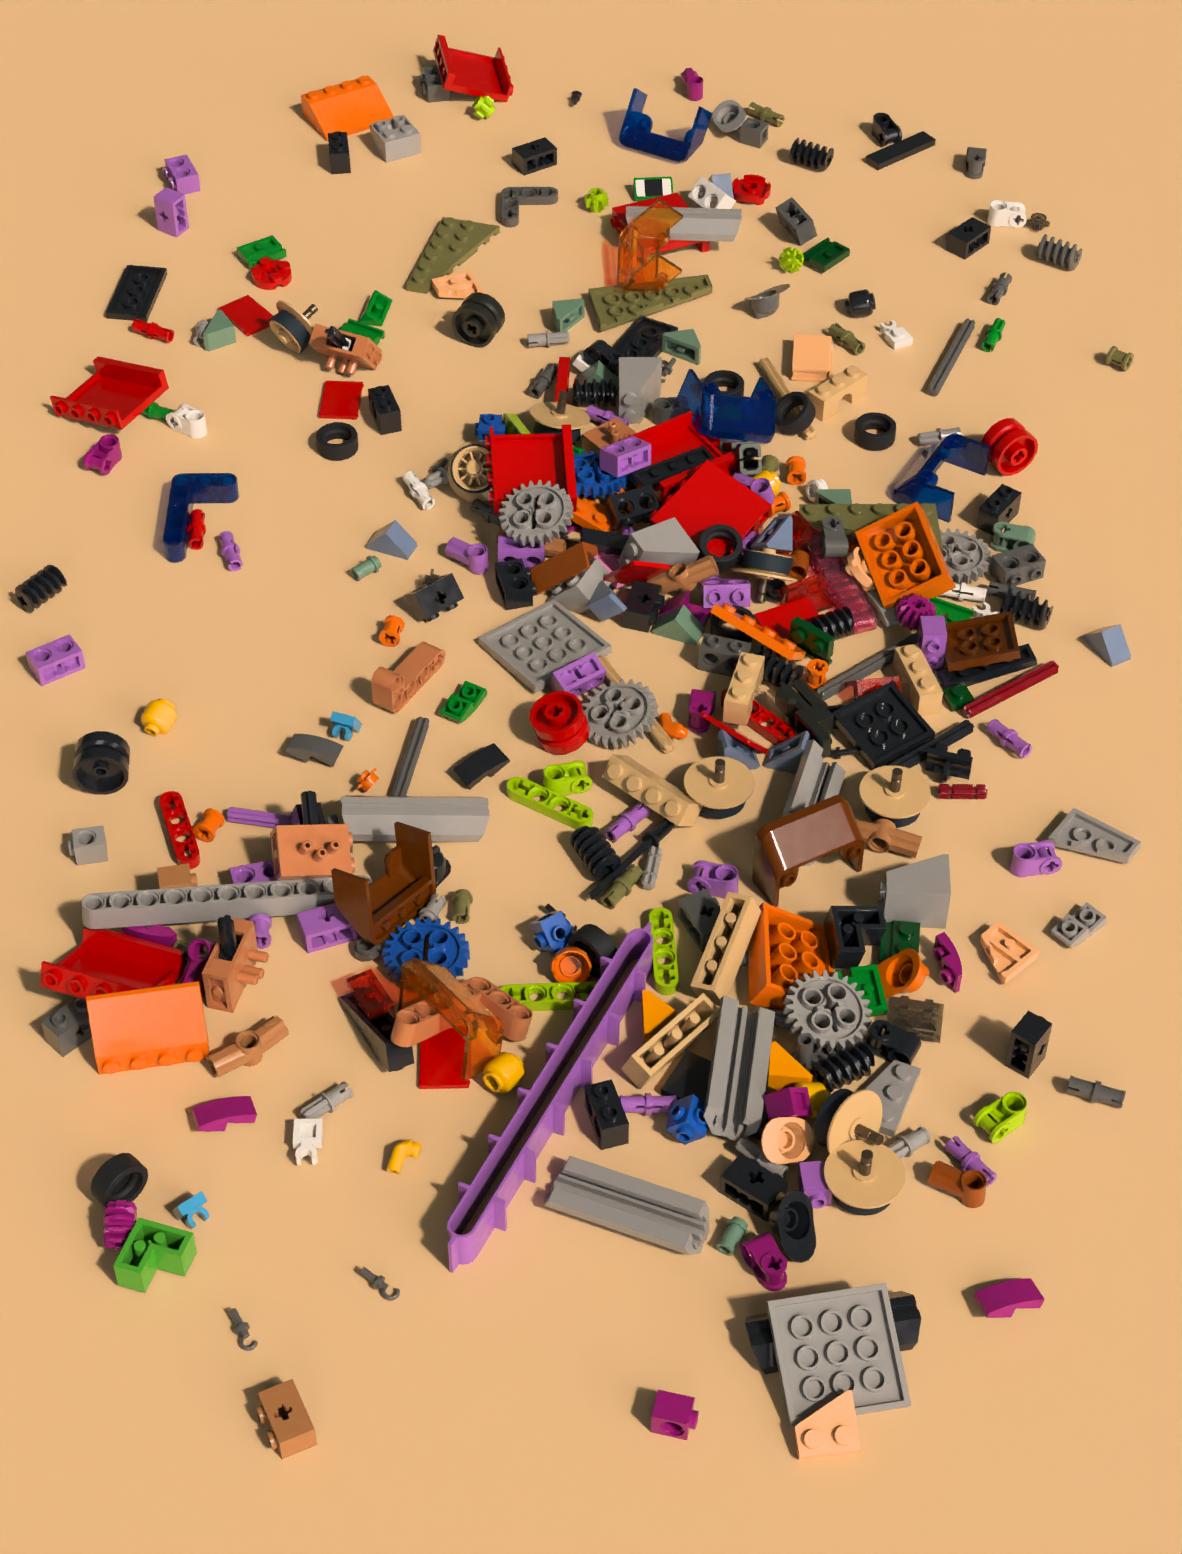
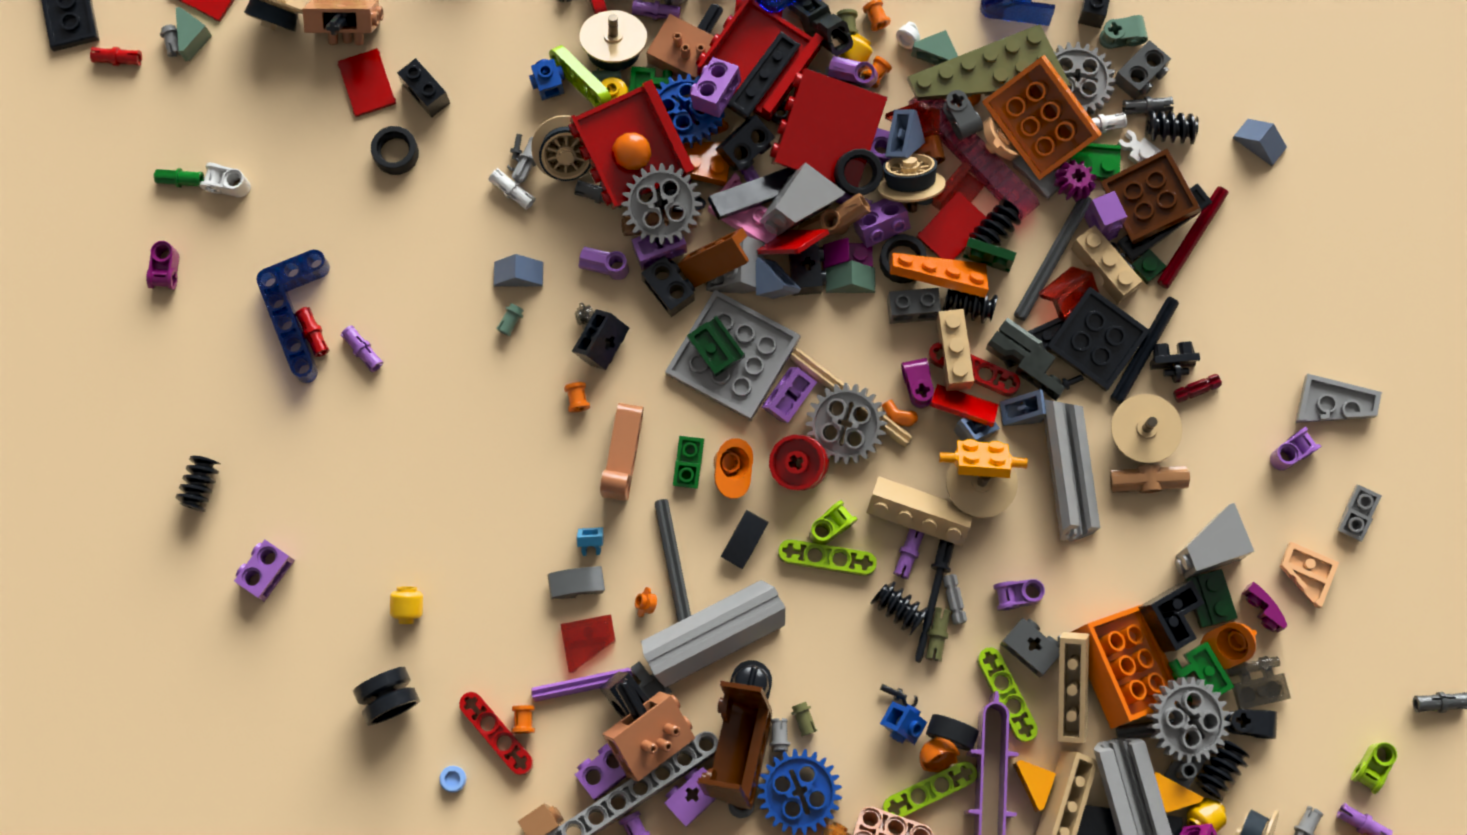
camera: 20 degrees left, 30 degrees up
(89, 845) = (434, 792): light grey brick -> none
(113, 393) = (126, 177): red panel -> none
(121, 849) = (453, 779): none -> light blue tile
(292, 785) = (586, 639): none -> clear red wing
(499, 709) = (733, 468): none -> orange piece
(529, 469) = (632, 151): none -> orange hair
(531, 628) = (715, 346): none -> dark green plate
(720, 749) = (983, 459): none -> light orange plate
(801, 839) = (1101, 541): reddish brown windscreen -> none
(817, 674) = (1011, 300): orange bush -> none
(894, 1089) = (1267, 781): light grey wing -> none
(1009, 738) = (1215, 304): medium lavender pin -> none
(1028, 1044) = (1374, 683): black brick -> none

